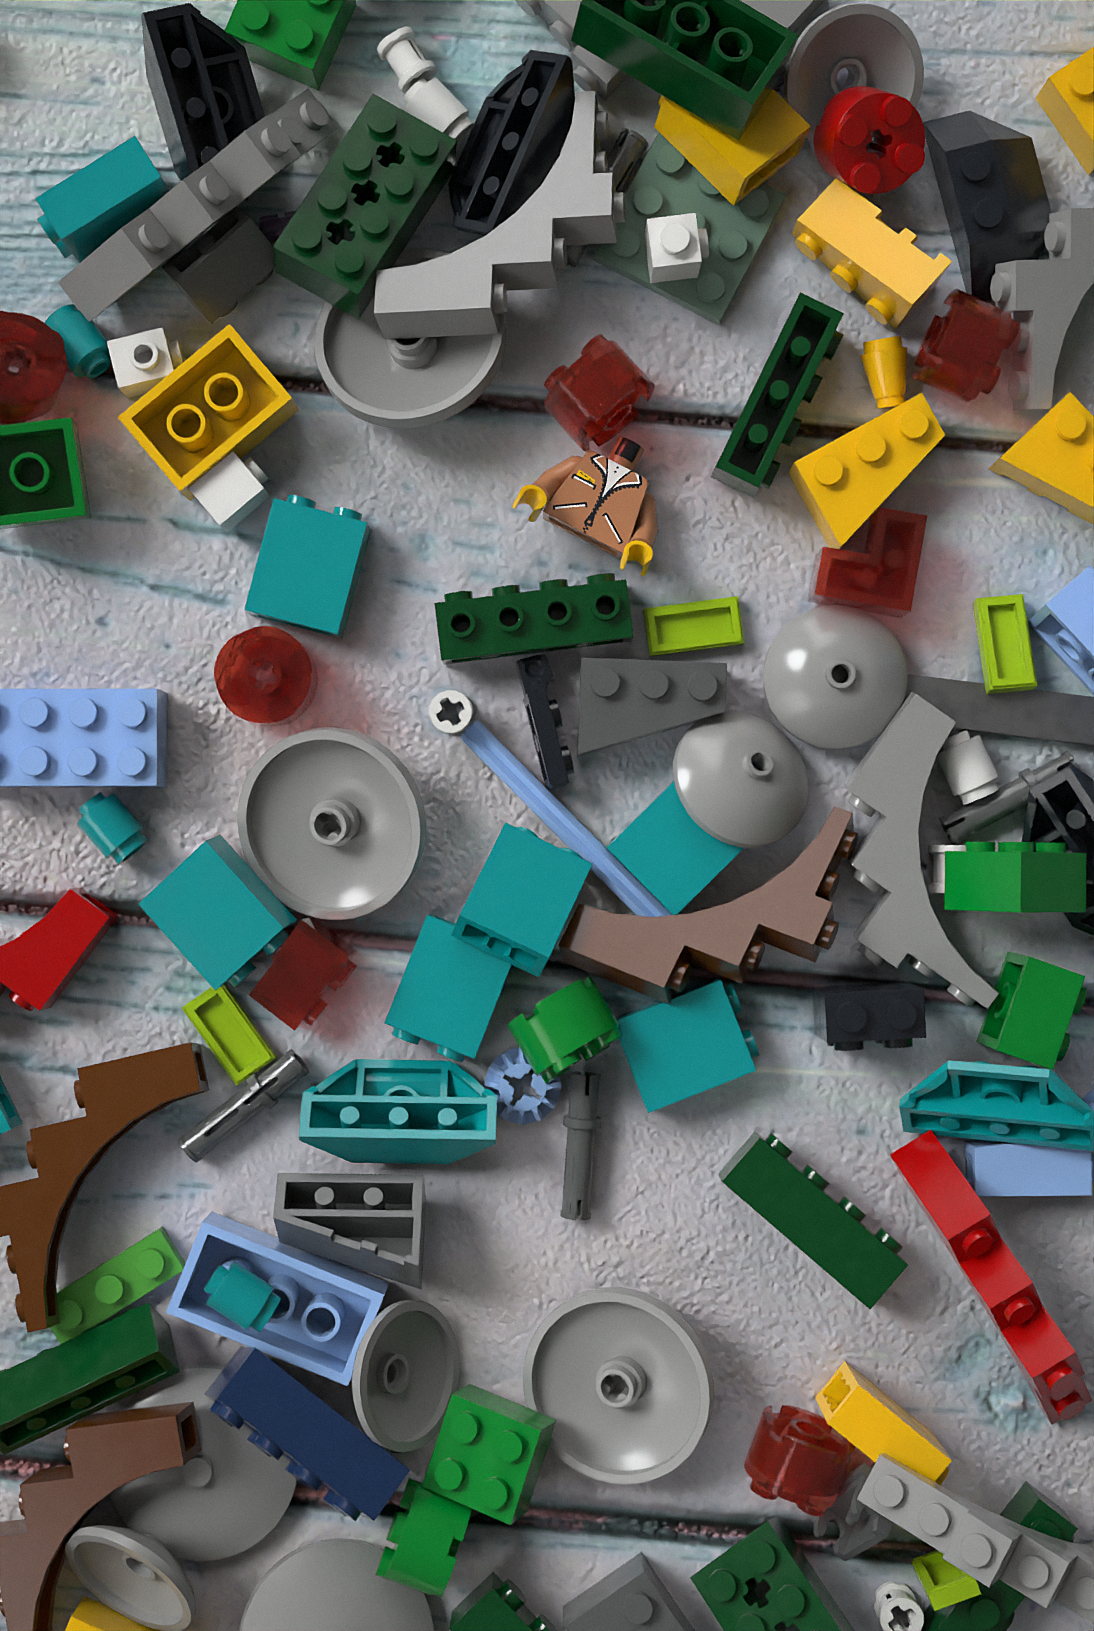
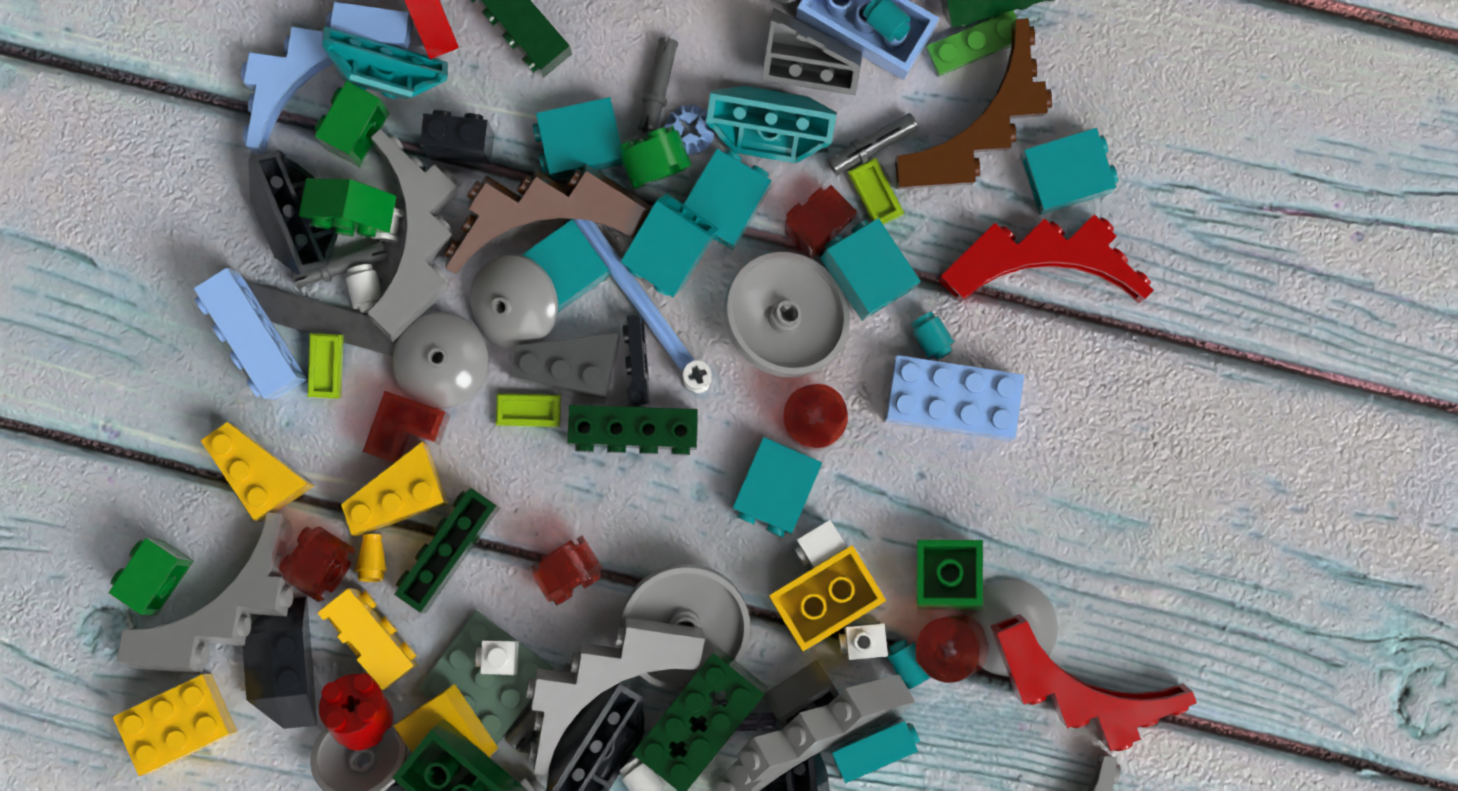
camera: 175 degrees left, 5 degrees down
(599, 502) = (576, 499): nougat torso -> none

